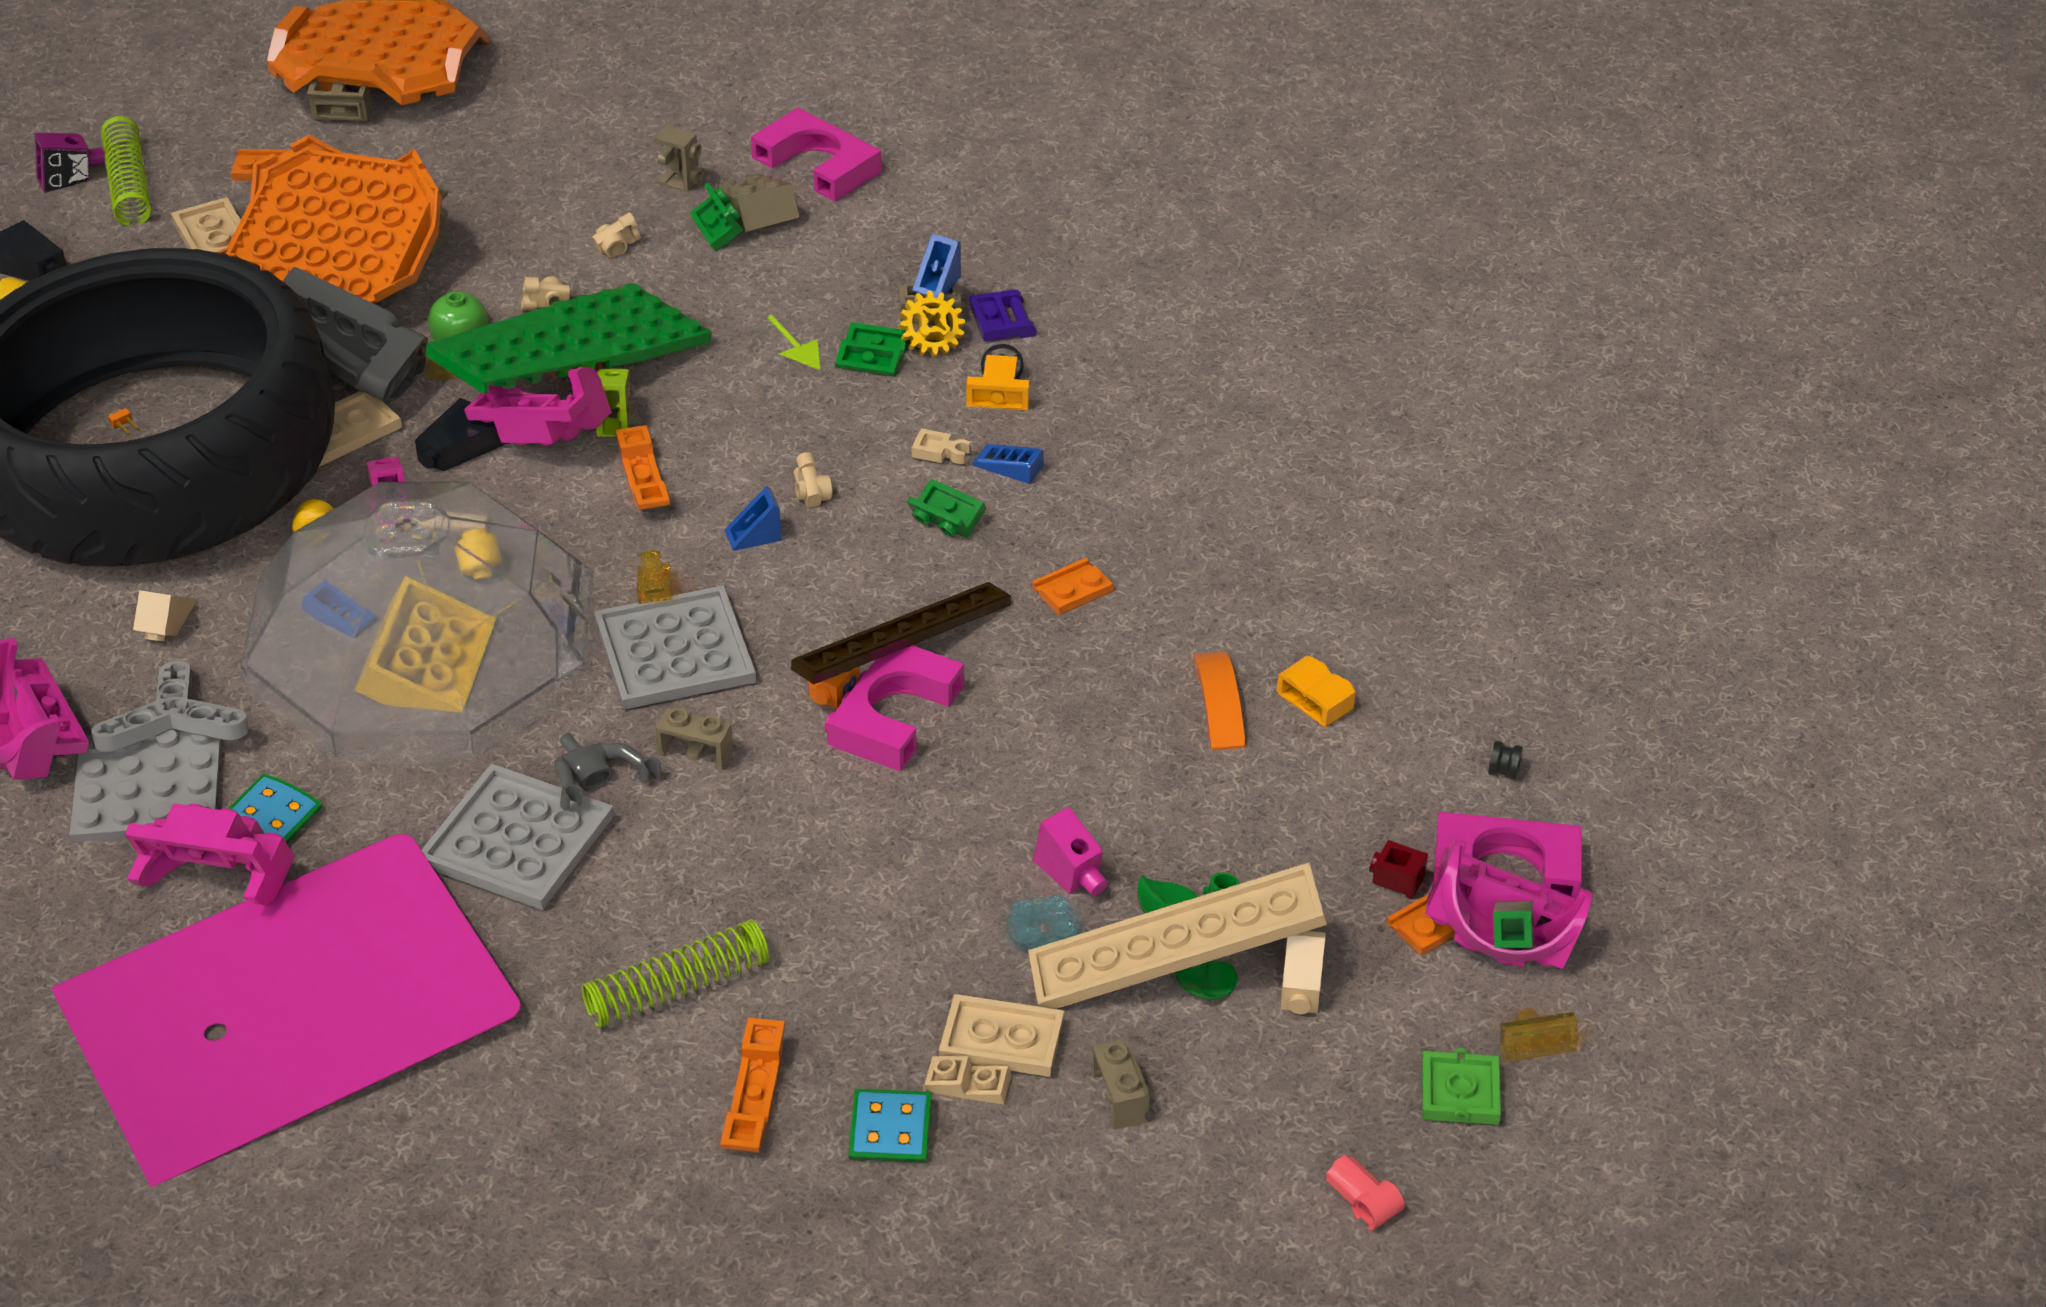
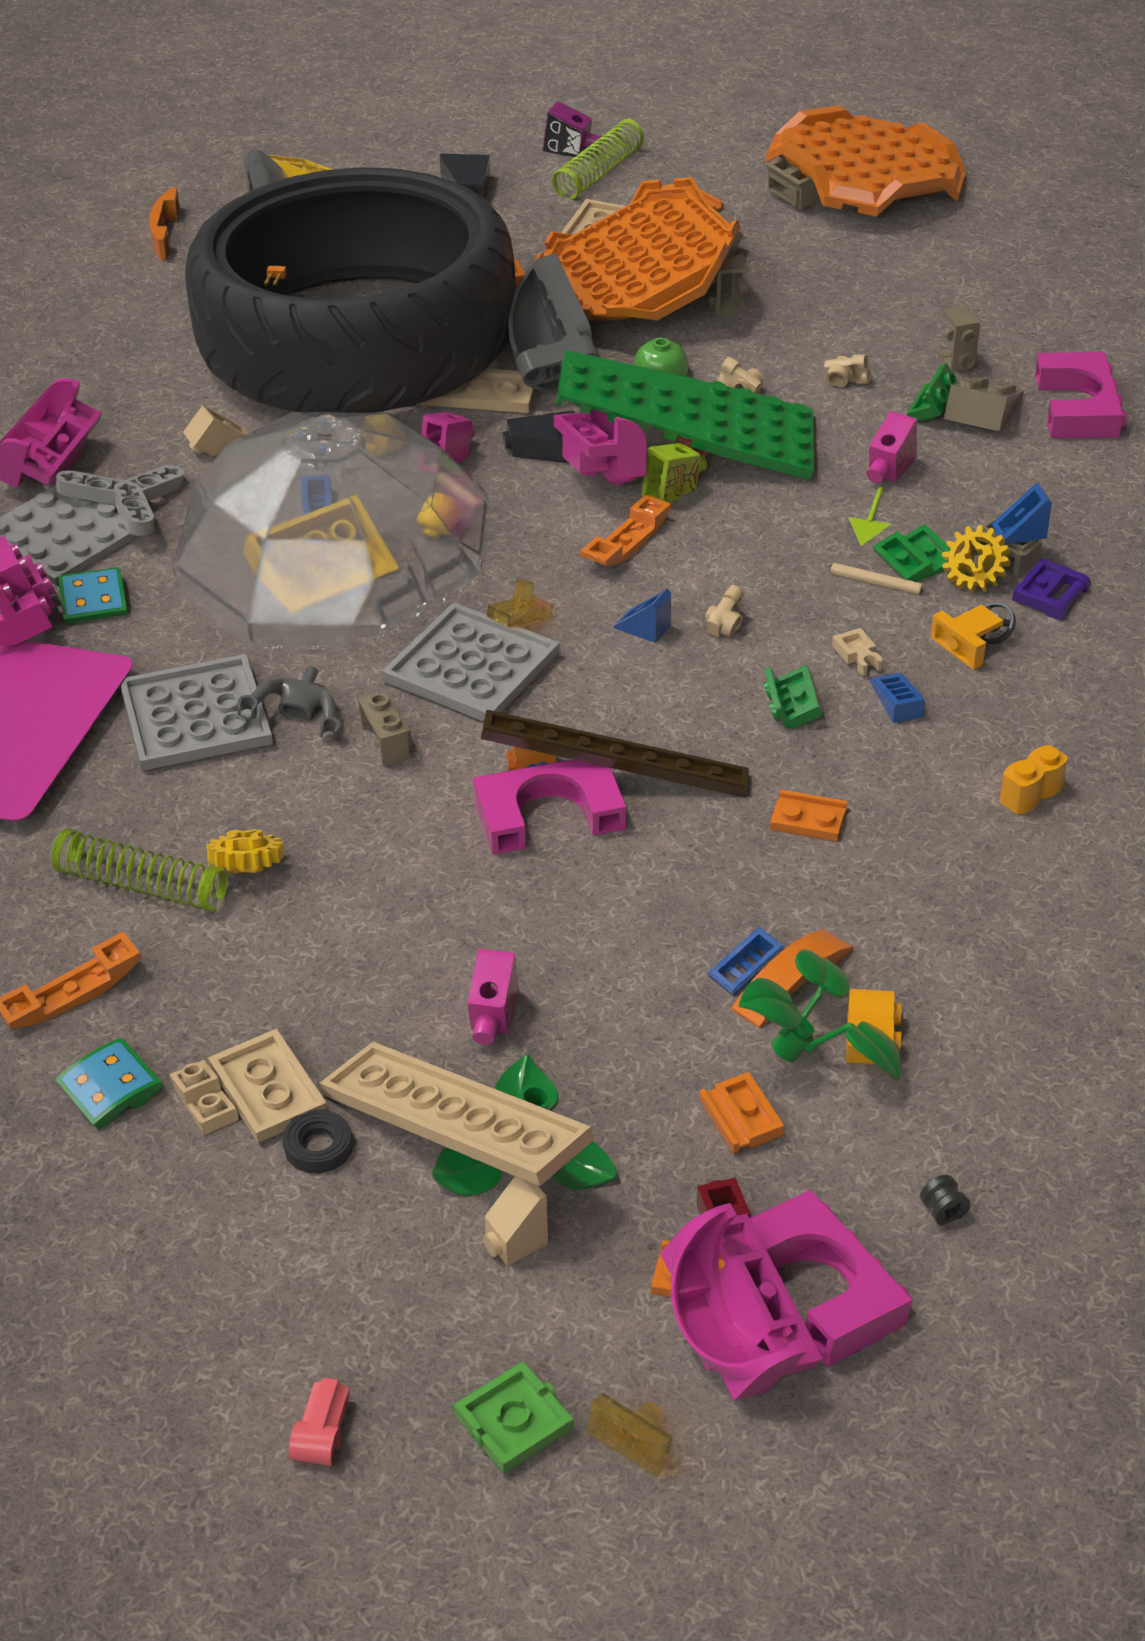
camera: 50 degrees right, 0 degrees up
(735, 899) = (244, 851): none -> yellow gear
(758, 290) = (892, 448): none -> dark pink torso
(869, 387) = (876, 578): none -> tan bar
(1034, 911) = (413, 1017): clear light blue plate -> none
(1080, 1024) = (318, 1122): none -> black tyre
(1124, 1083) = (273, 1186): dark tan window -> none
(1184, 690) = (756, 940): none -> blue slope
(1185, 456) = (1033, 779): none -> light orange brick
(1287, 714) = (797, 1033): none -> green plant
(1318, 805) = (741, 1113): none -> orange plate
(1513, 924) = (716, 1322): green brick -> none

